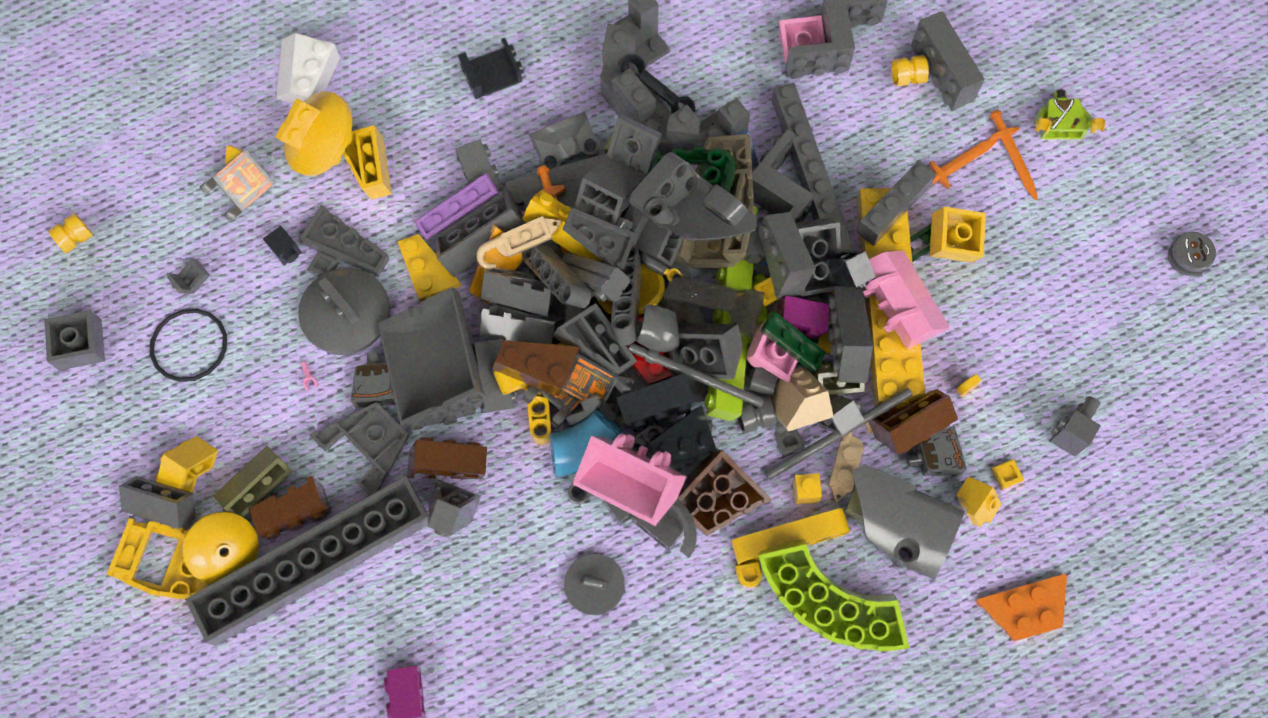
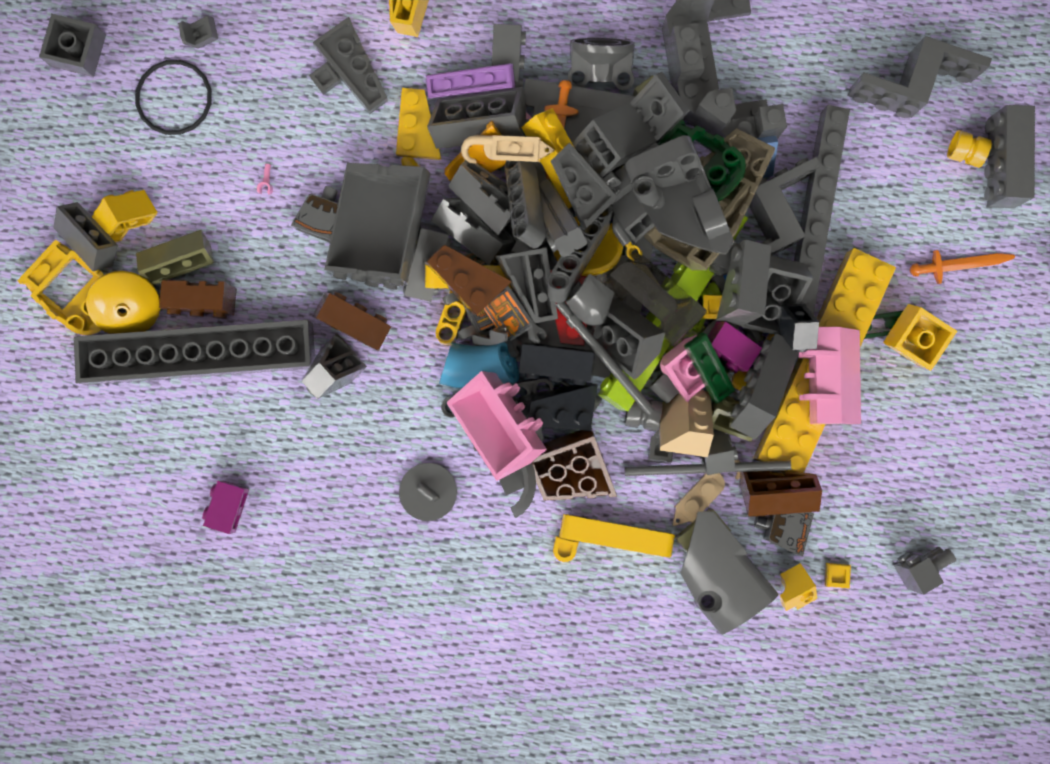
camera: 25 degrees right, 15 degrees up
(282, 245) = (295, 41): black brick -> none
(343, 311) = (324, 132): dark grey bracket -> none
(374, 435) = (299, 265): dark grey wing -> none
(655, 85) = (716, 50): black piece -> none
(800, 33) = (884, 60): bright pink slope -> none
(807, 489) = (653, 502): yellow brick -> none
(828, 608) = (616, 611): lime brick -> none
(896, 203) = (878, 281): dark grey brick -> none
(968, 385) = (848, 480): yellow tile -> none
(1005, 134) = (1023, 258): orange sword -> none
(1028, 608) = (789, 698): orange wing -> none

